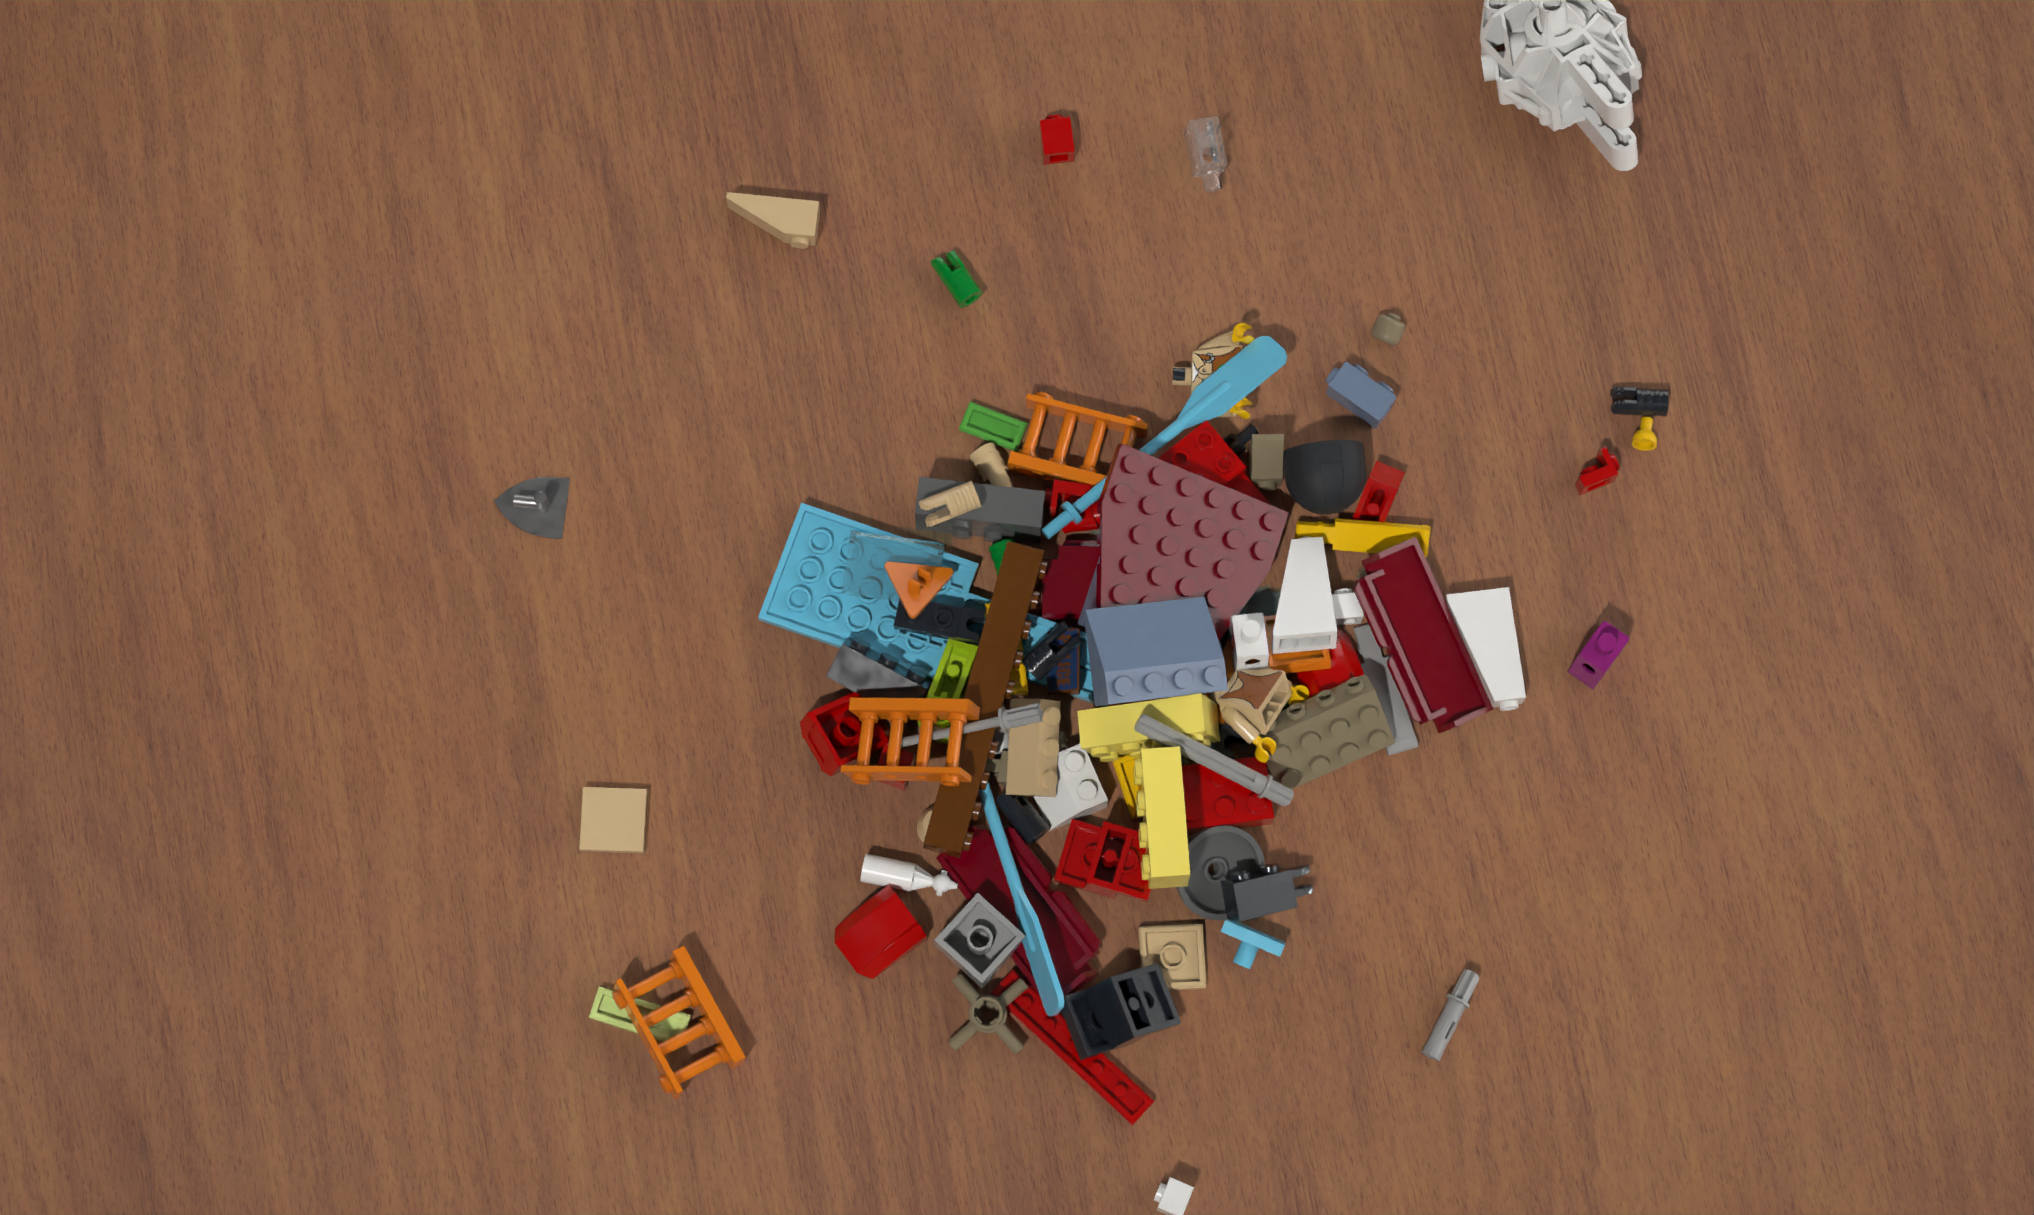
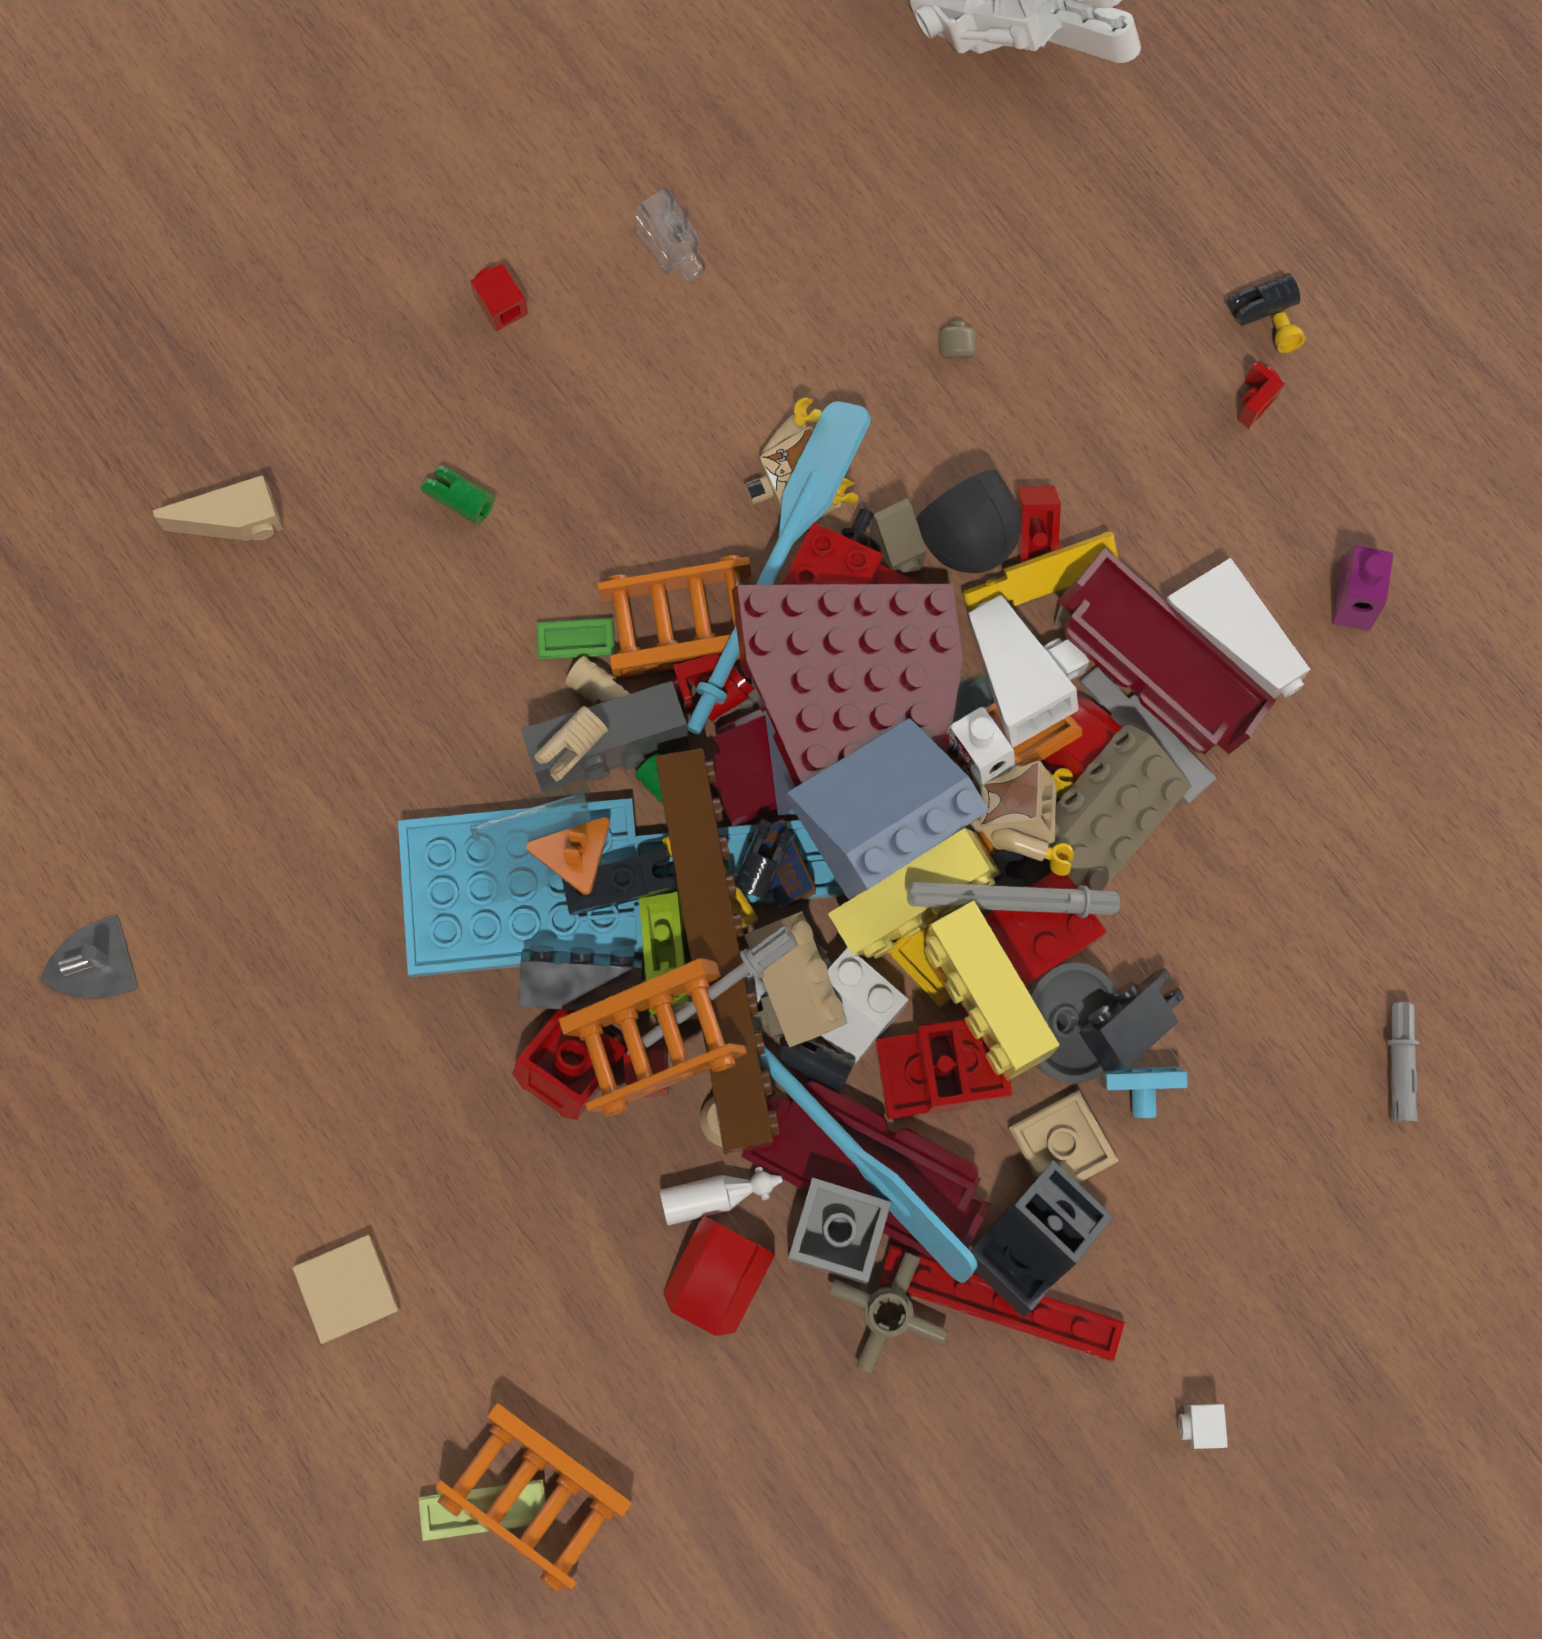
camera: 25 degrees left, 0 degrees up
(1360, 394) = (963, 423): sand blue brick -> none

